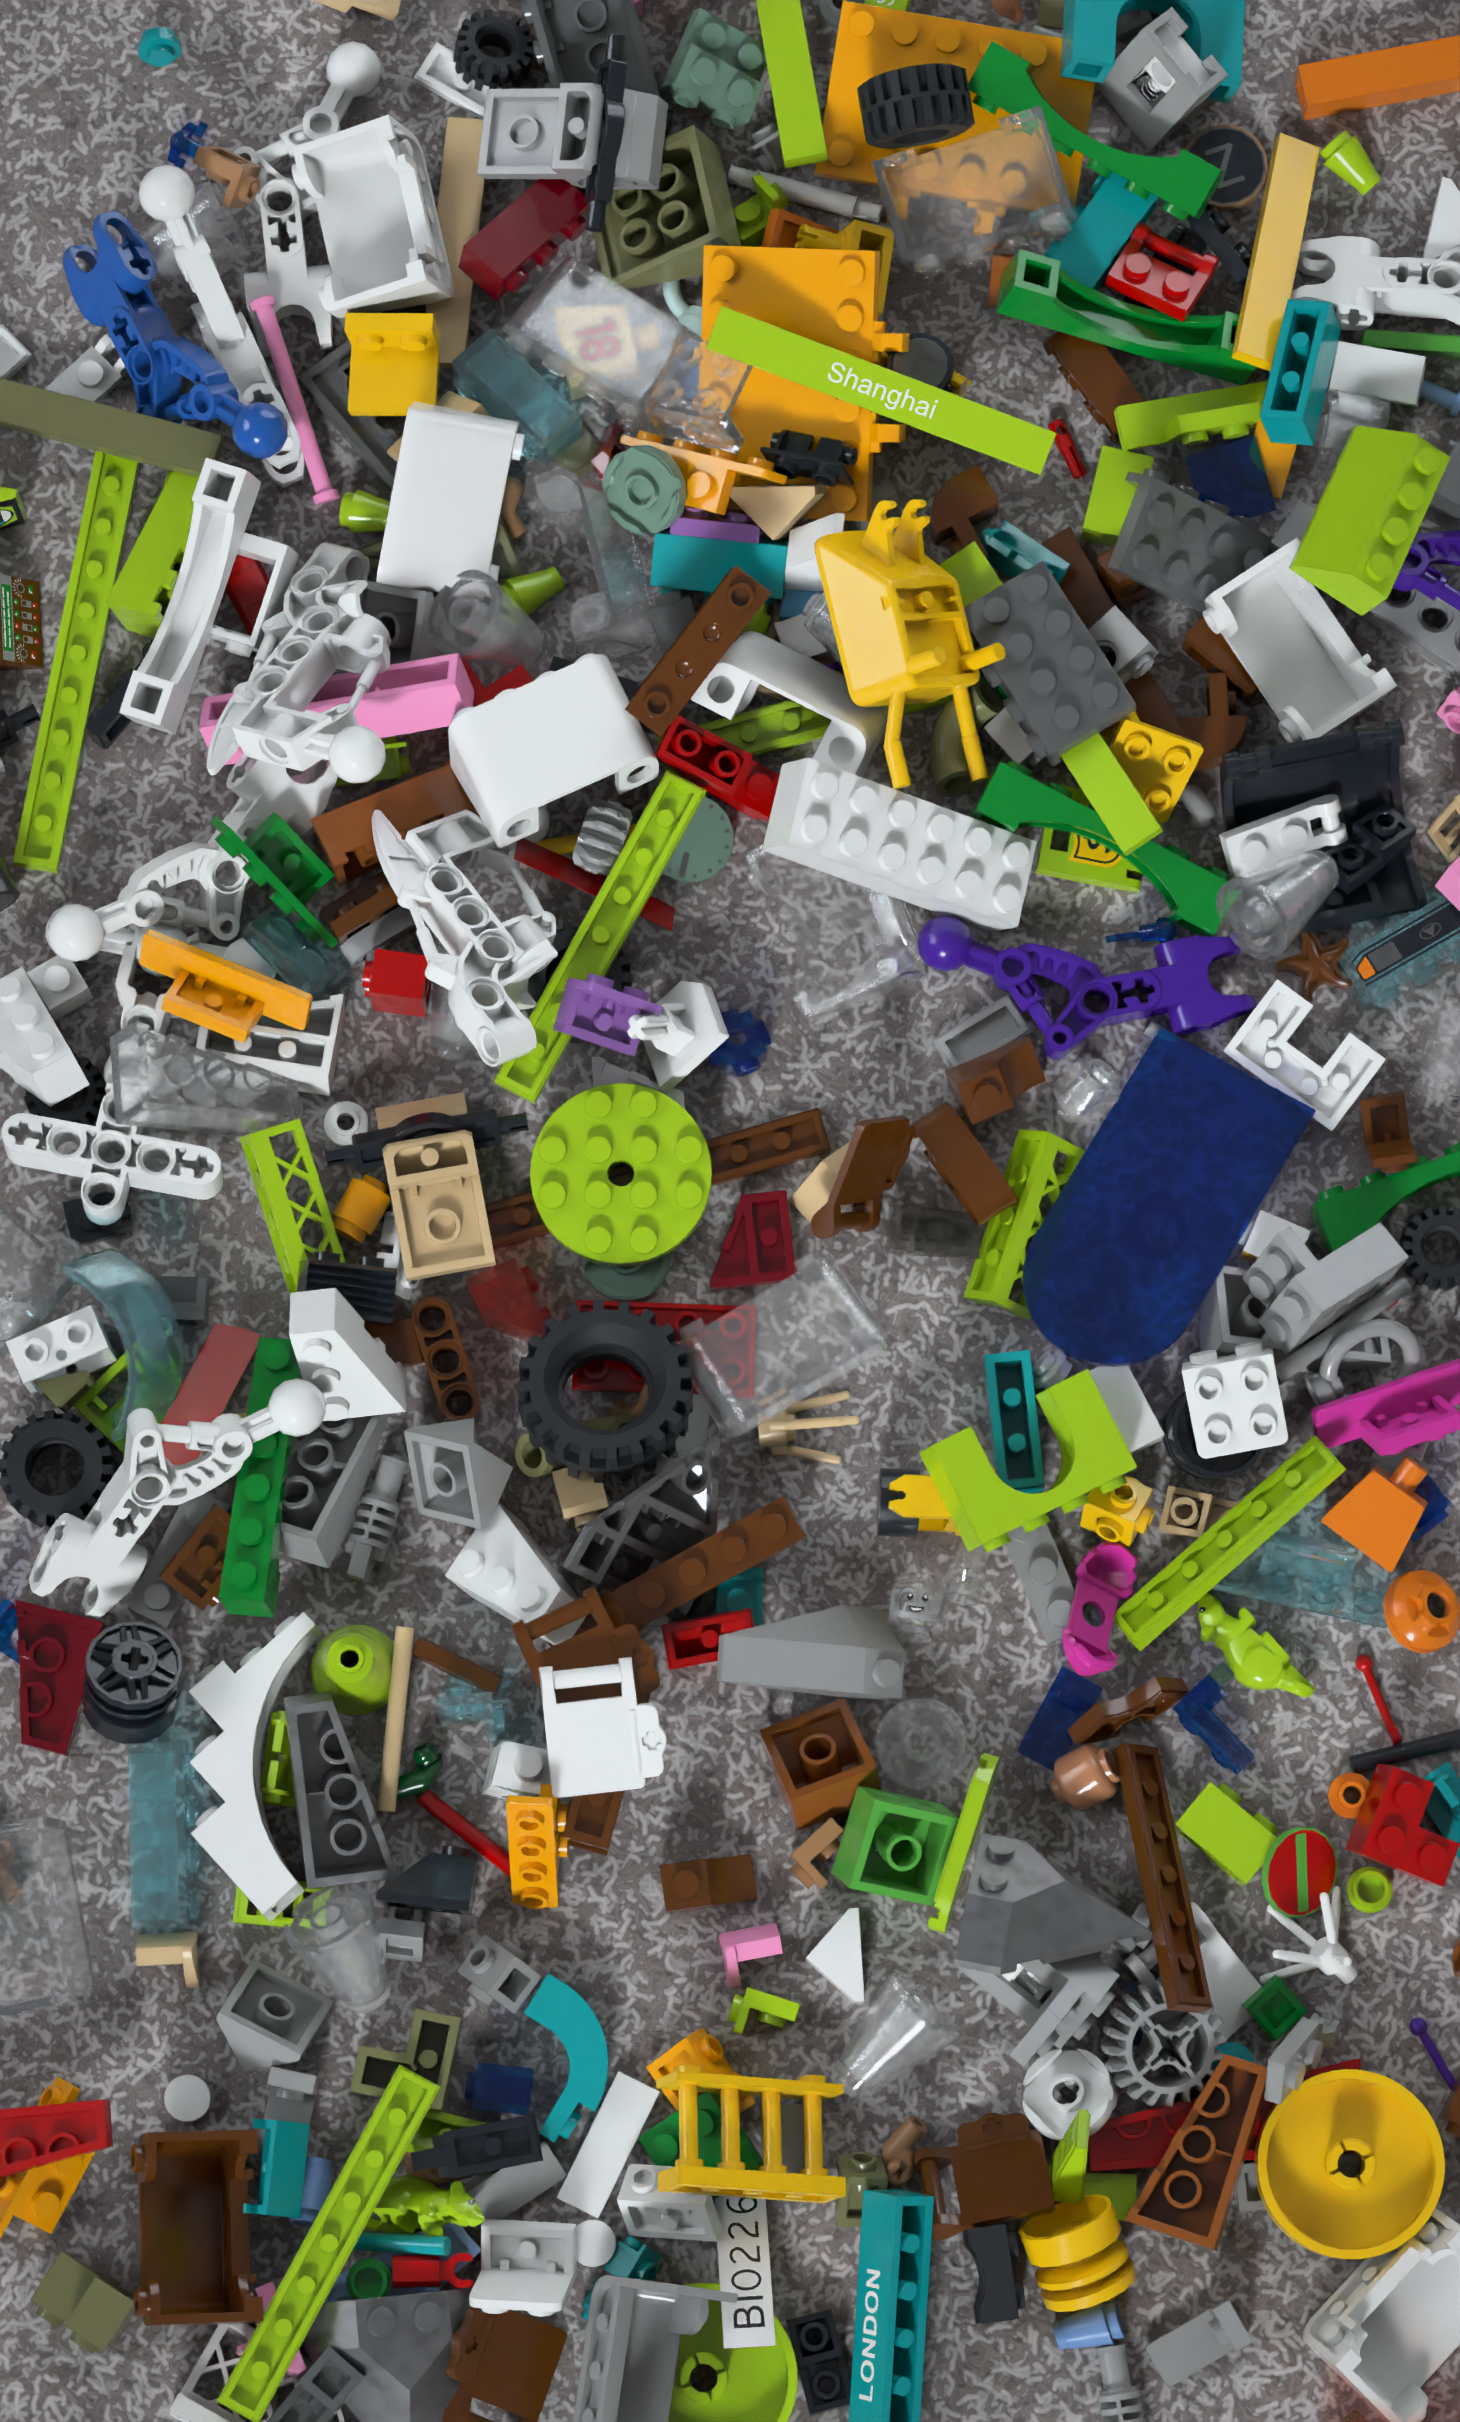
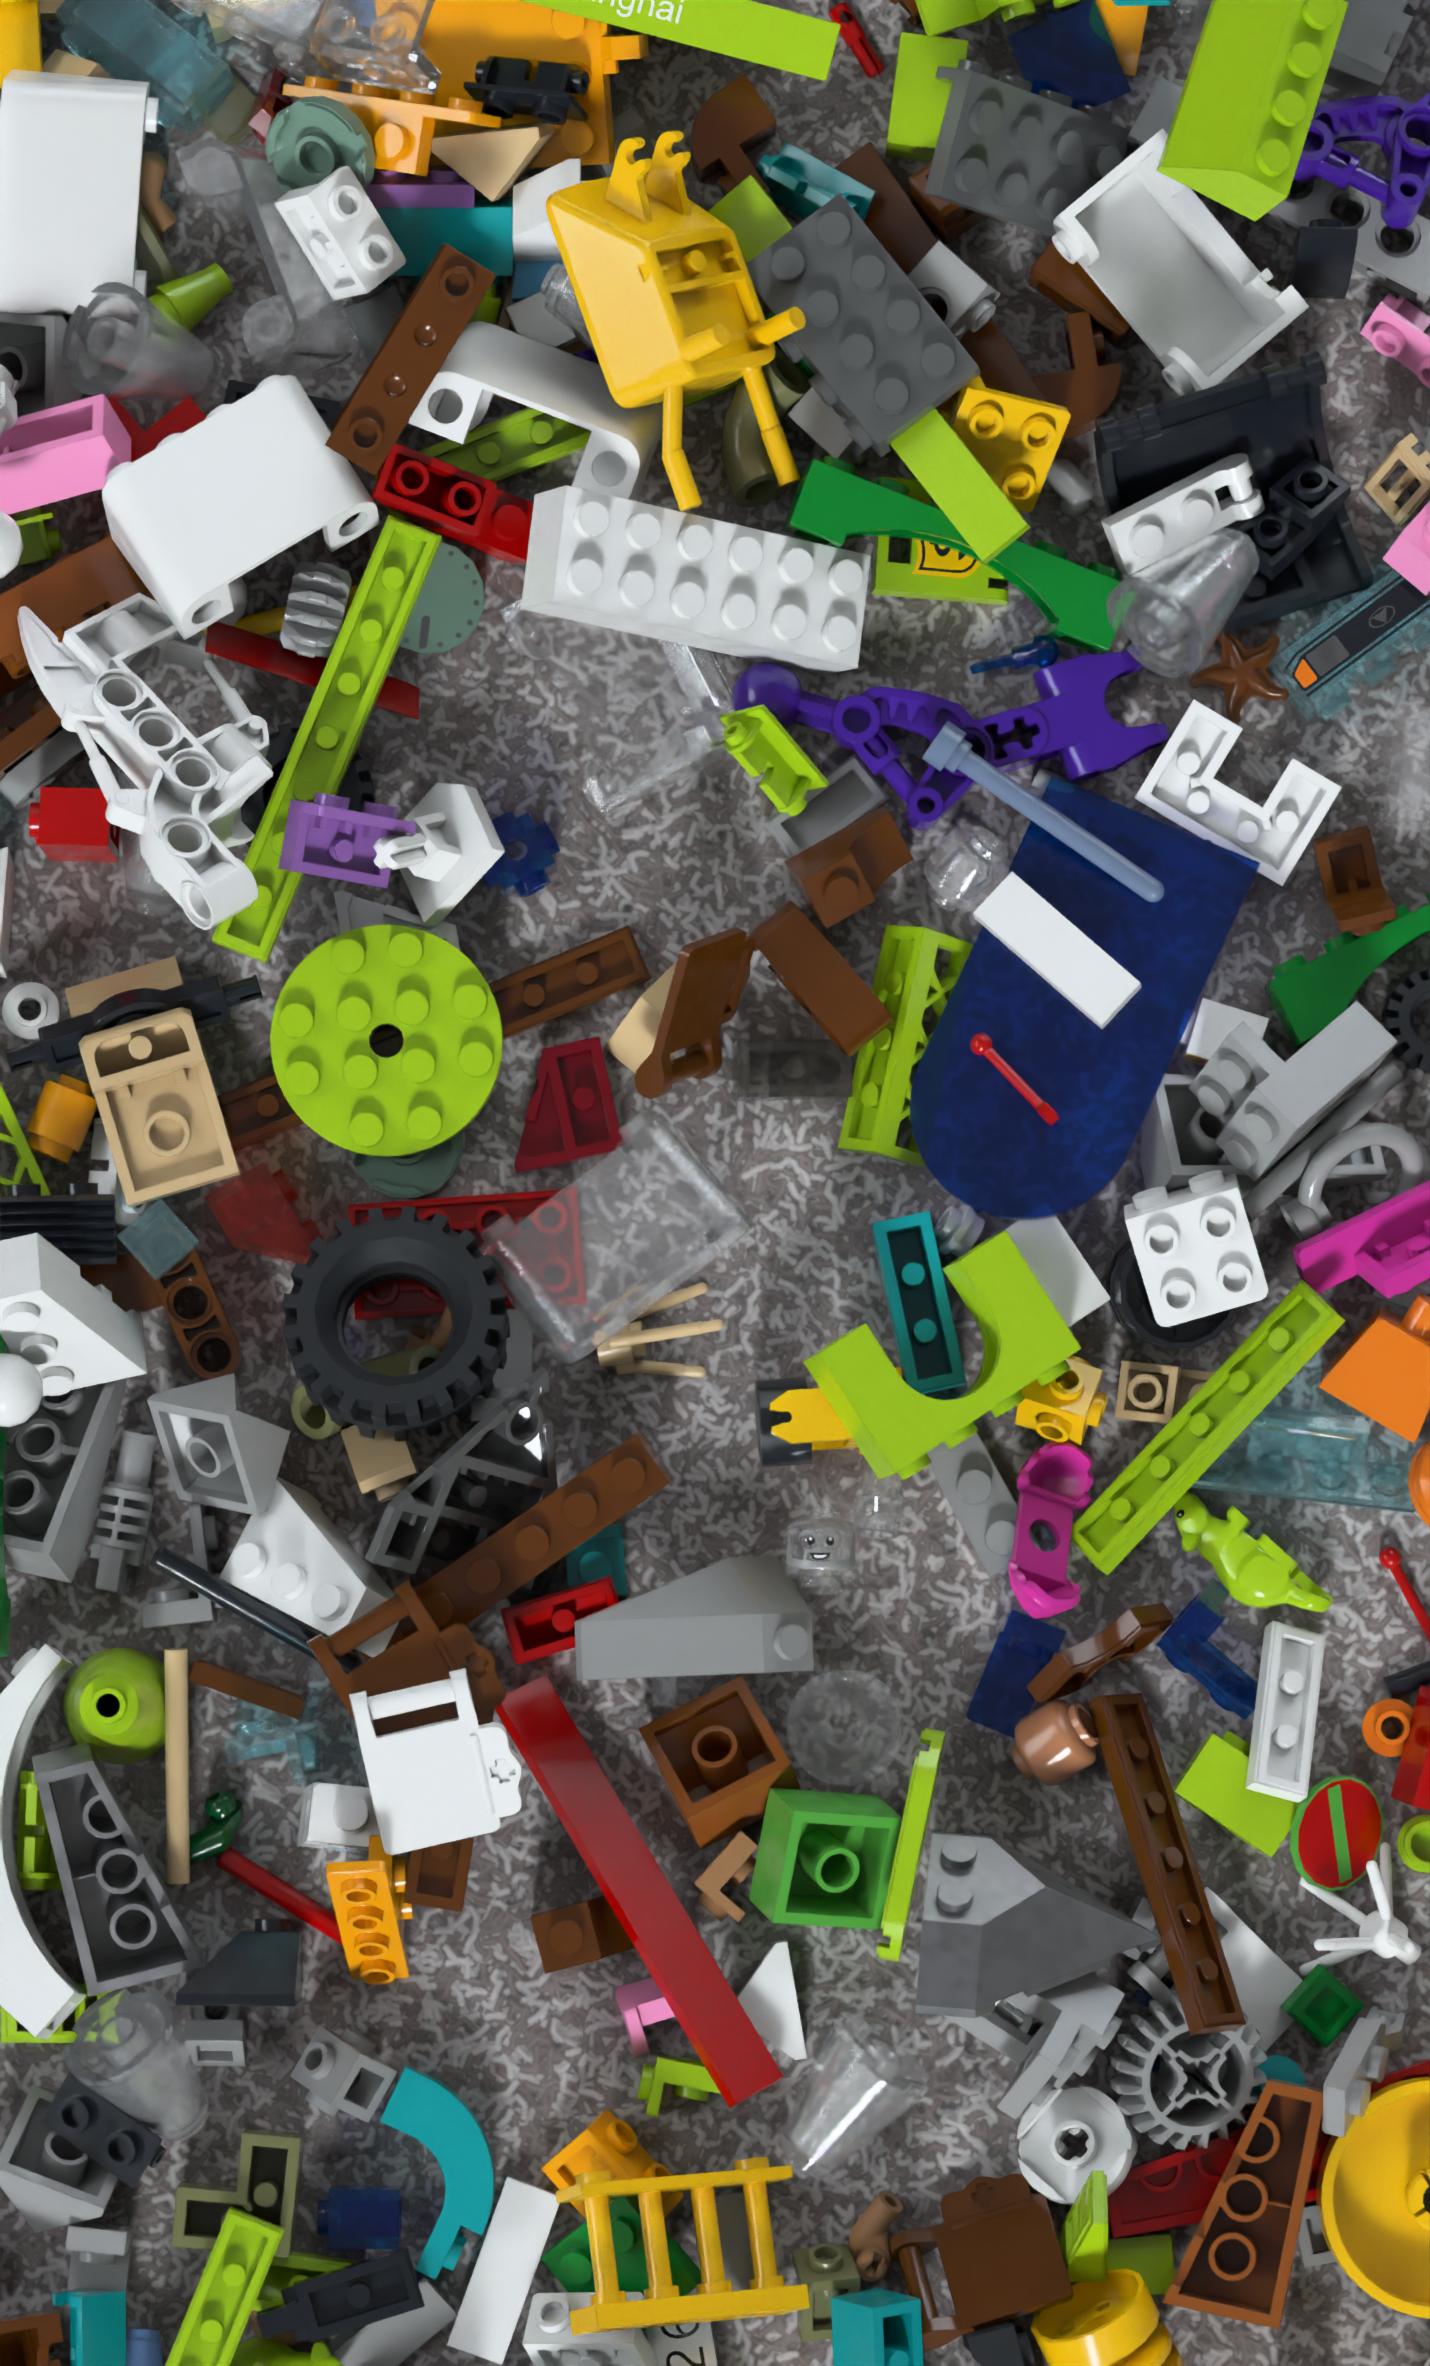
camera: 10 degrees left, 5 degrees up
(306, 1996) = (103, 2131): none -> black hinge
(406, 1596) = (174, 1606): none -> light grey bracket
(426, 1307) = (158, 1239): none -> clear light blue tile
(458, 1596) = (240, 1603): none -> black bar
(653, 552) = (341, 234): none -> white bracket
(746, 1857) = (638, 1891): none -> red tile
(940, 980) = (764, 745): none -> lime hinge
(1084, 1227) = (982, 1045): none -> red hinge
(1085, 998) = (954, 753): none -> sand blue piece
(1150, 1160) = (1057, 950): none -> white tile
(1269, 1772) = (1285, 1712): none -> white tile
(1412, 652) = (1323, 259): none -> black slope

